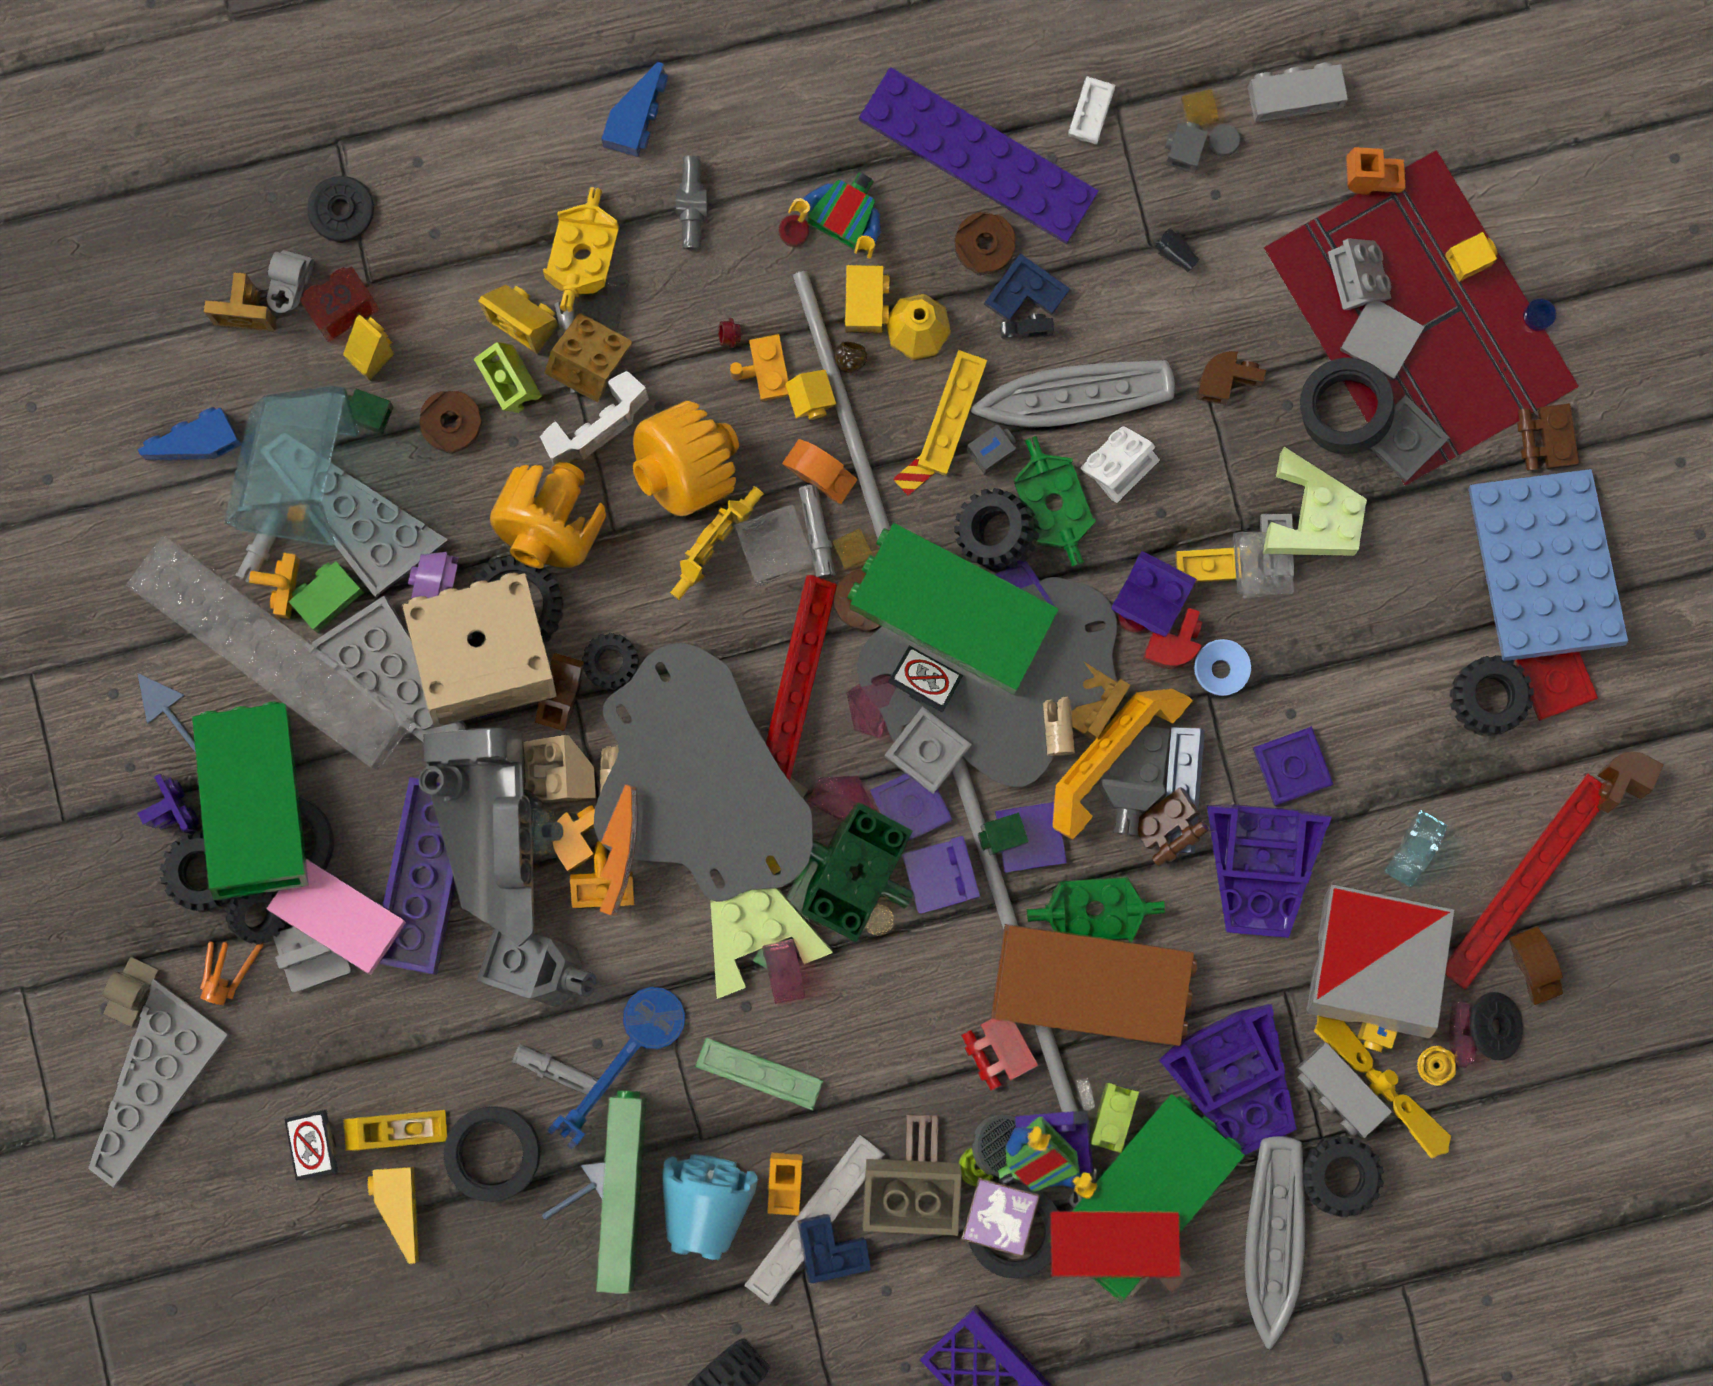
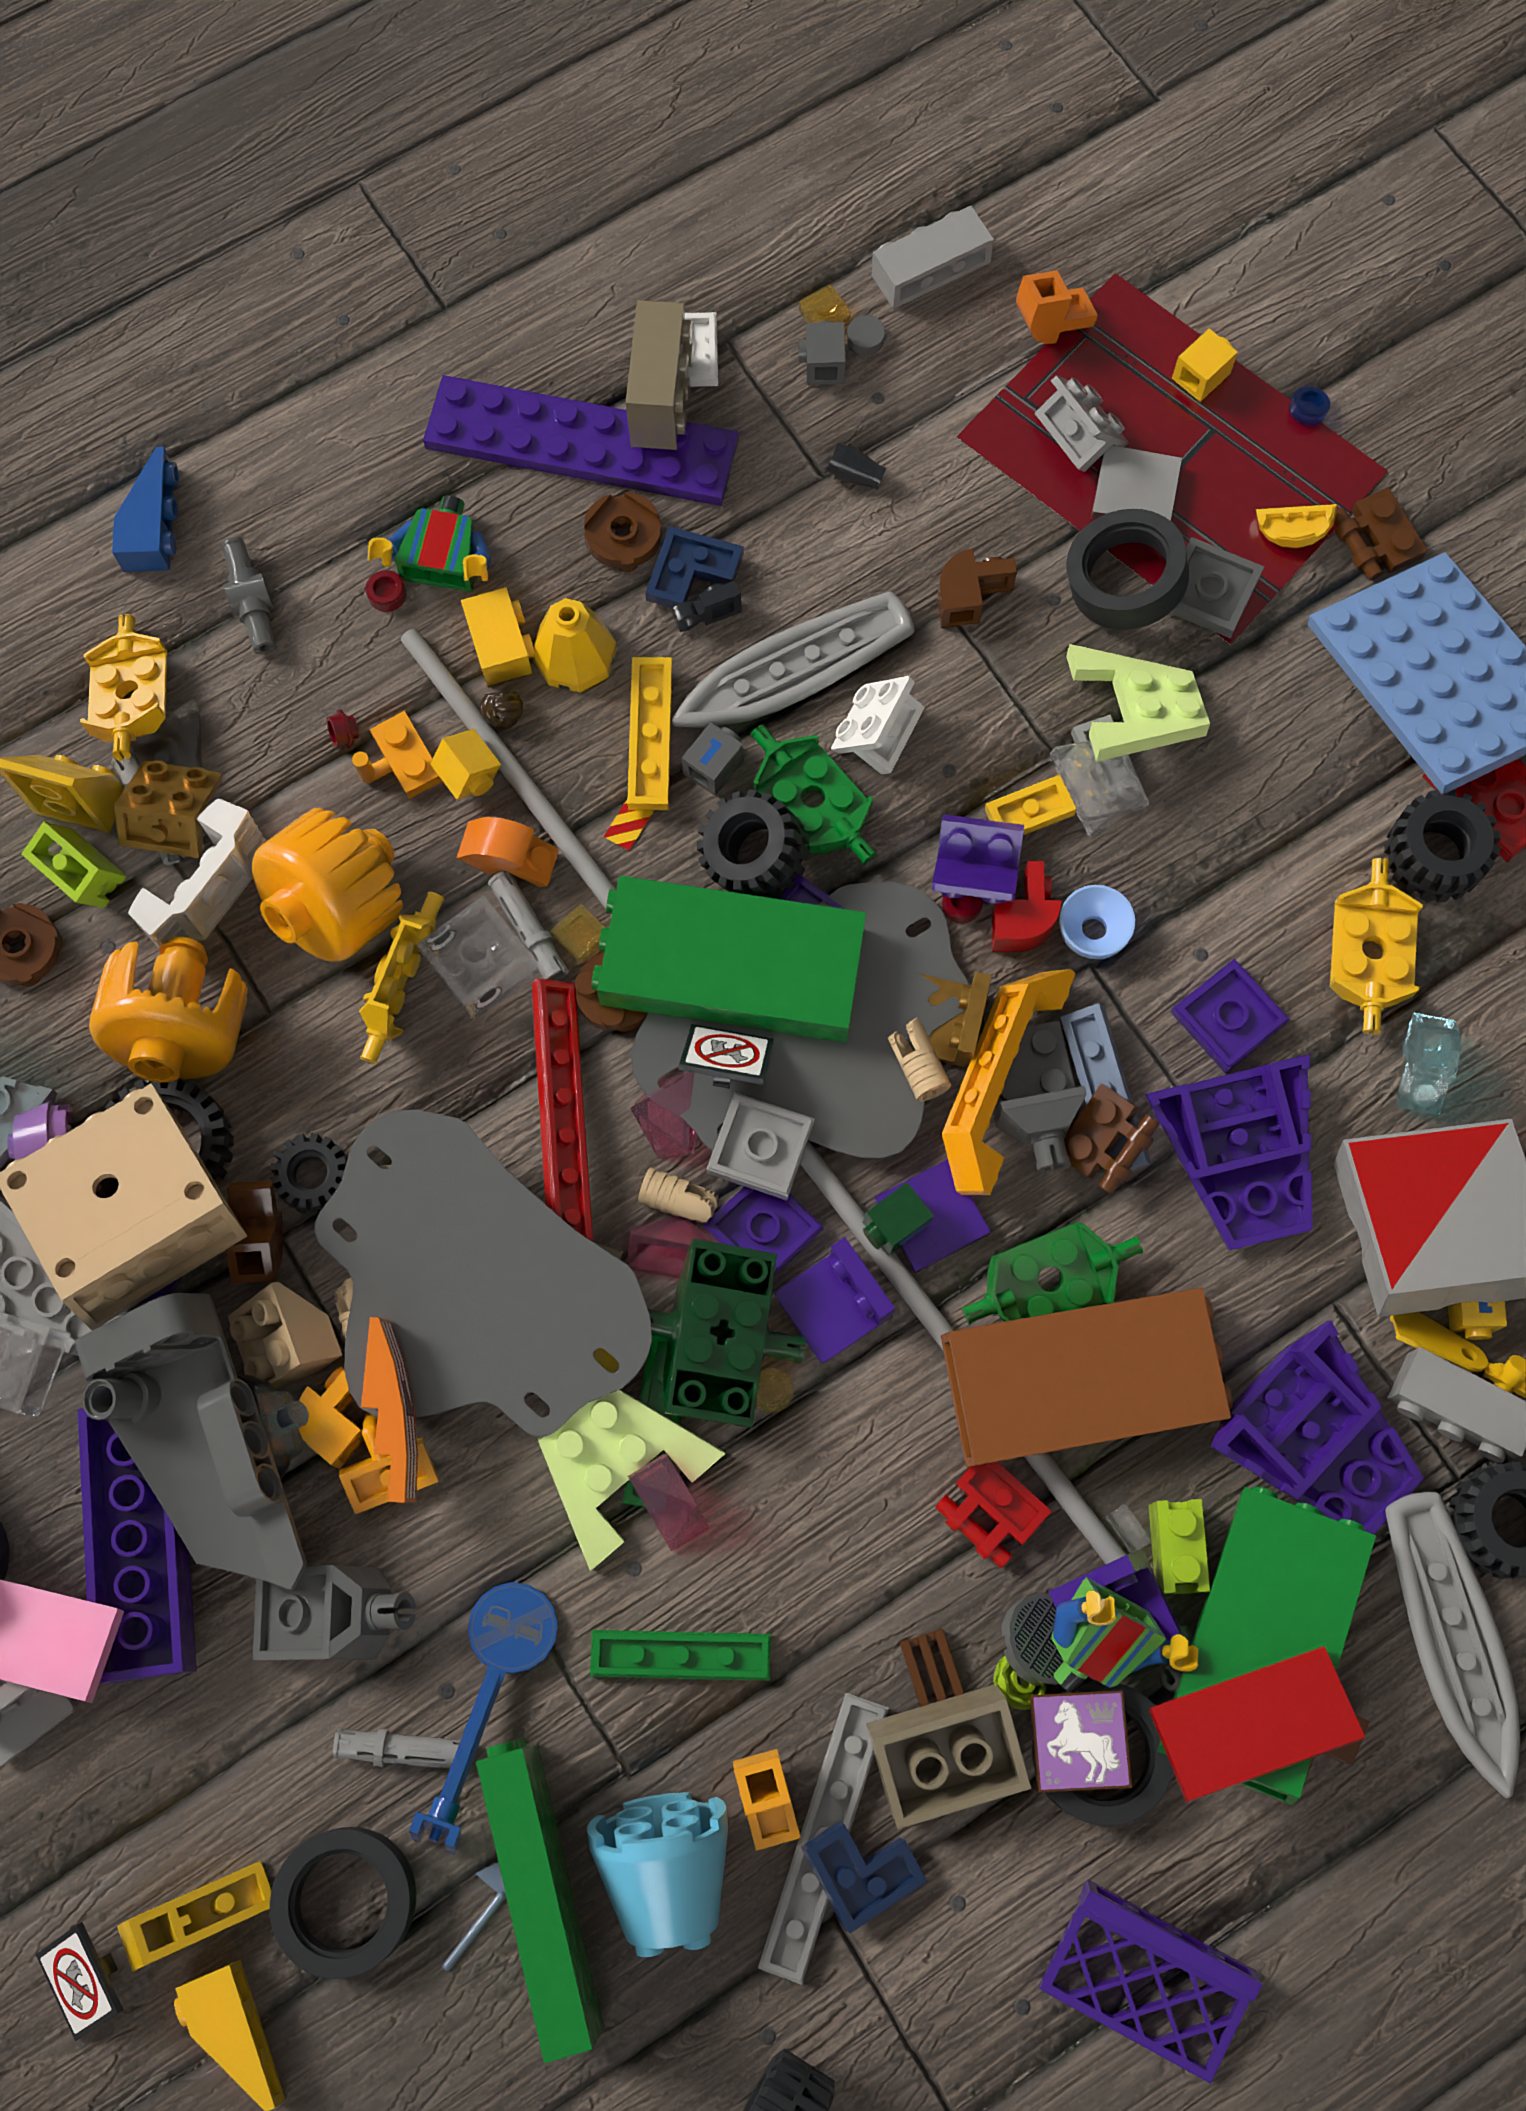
camera: 15 degrees left, 10 degrees down
(859, 765) = (677, 1196): none -> tan hinge
(1051, 136) = (659, 375): none -> dark tan brick
(1432, 734) = (1390, 920): none -> yellow plate
(1489, 411) = (1296, 525): none -> yellow plate

